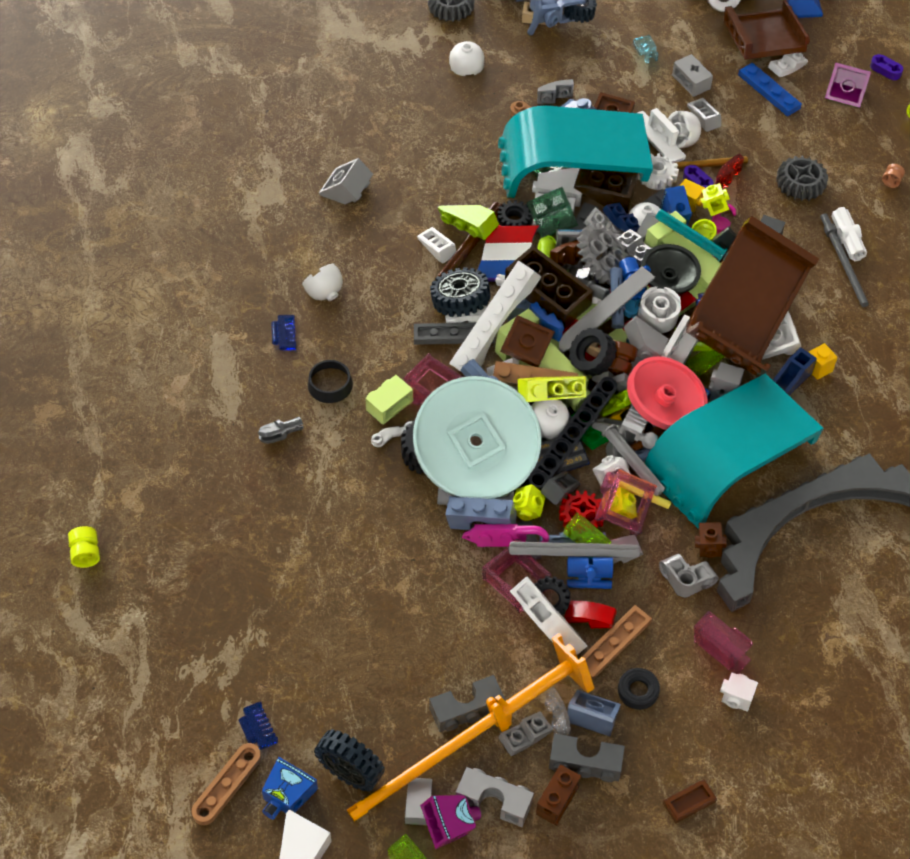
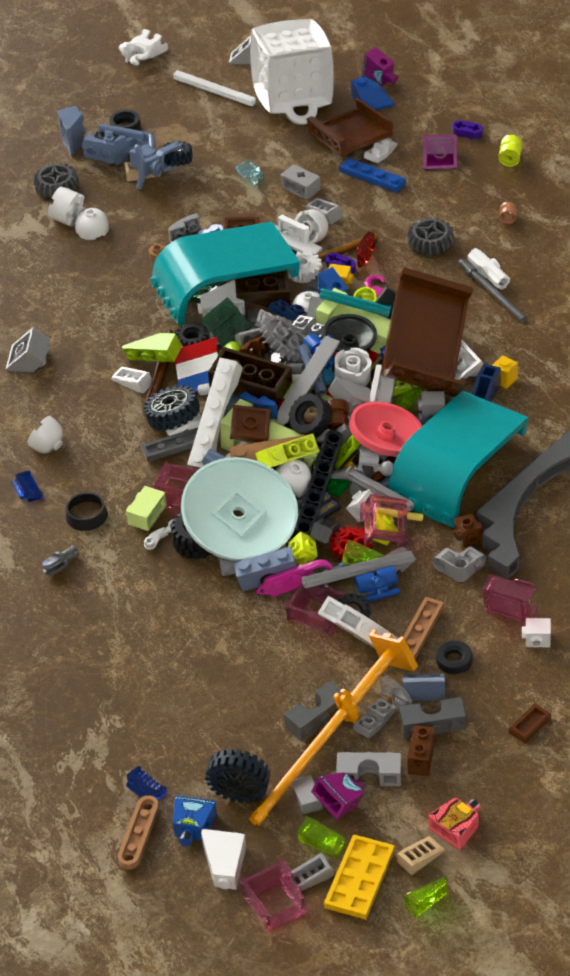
camera: 15 degrees left, 10 degrees down
(447, 32) = (66, 206): none -> white brick
(594, 613) = (396, 613): red slope -> none
(715, 199) = (363, 272): neon yellow brick -> none

